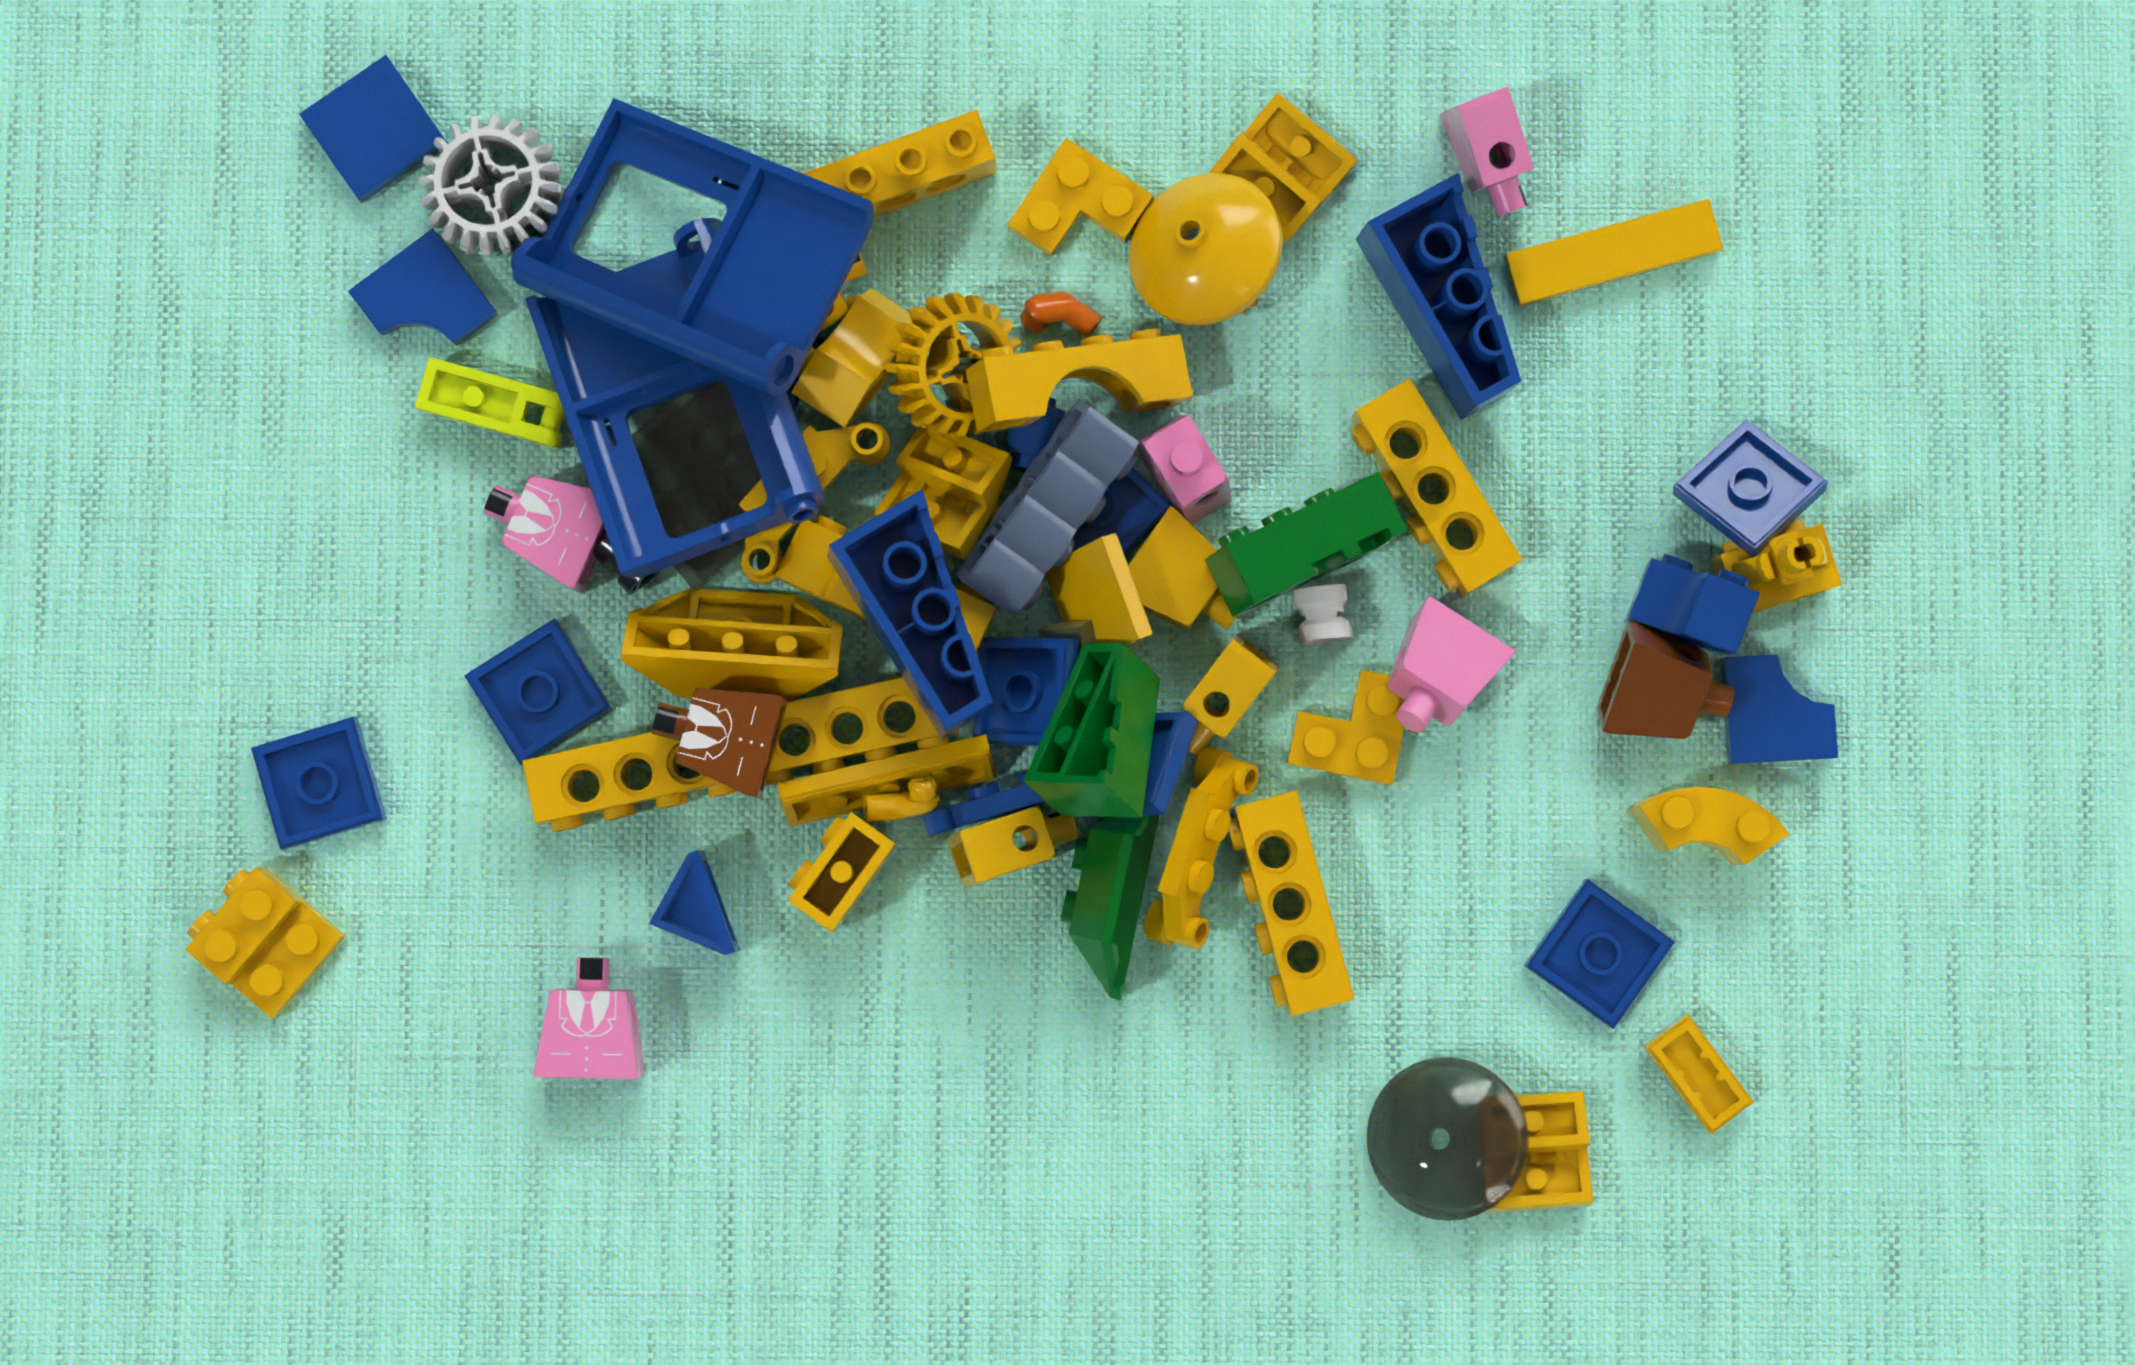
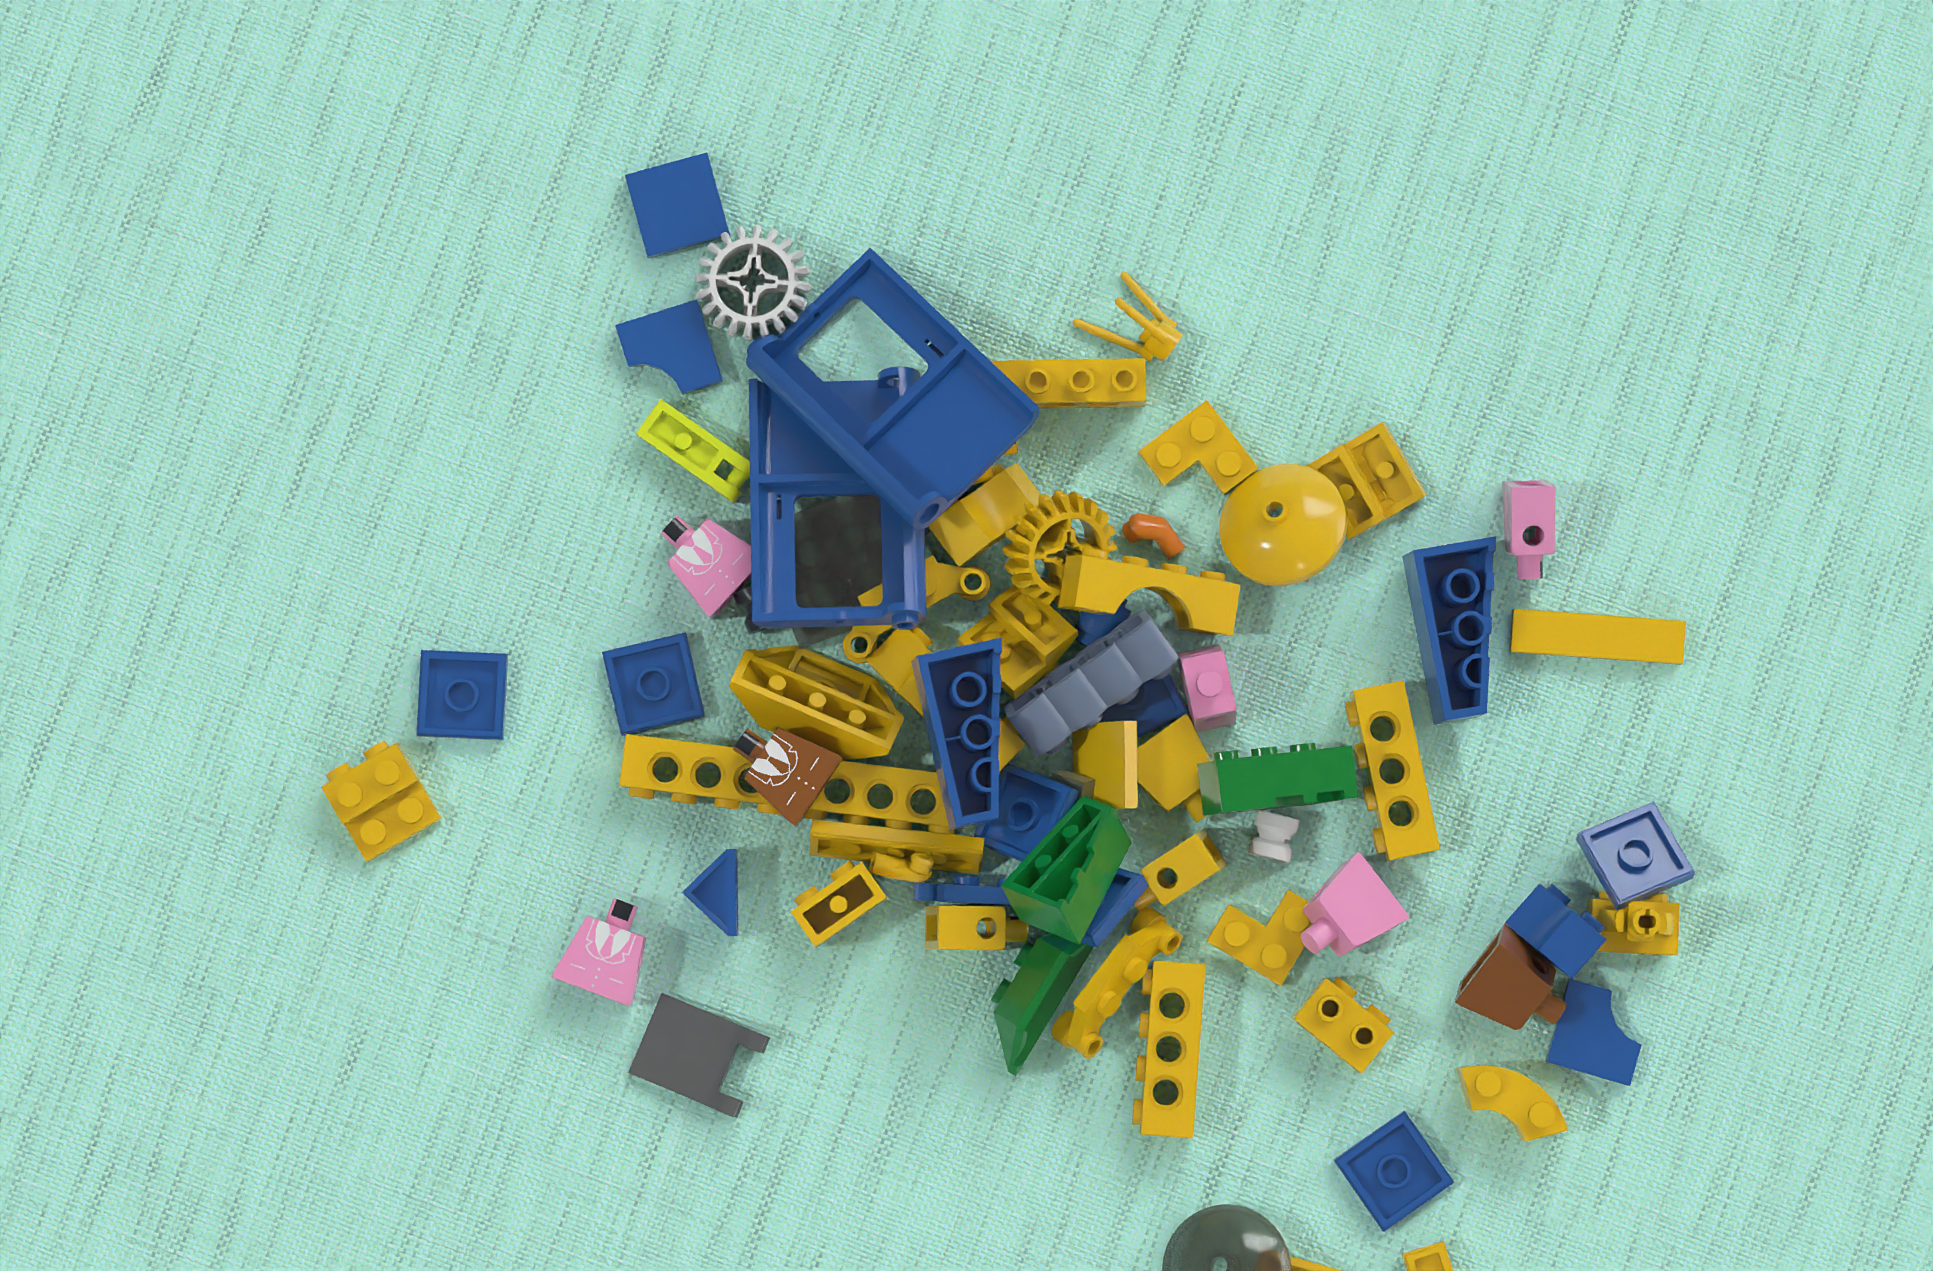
camera: 20 degrees right, 0 degrees up
(734, 1106) = (693, 1052): none -> dark grey flag
(984, 80) = (1158, 336): none -> yellow plant
(1482, 803) = (1343, 1024): none -> yellow brick

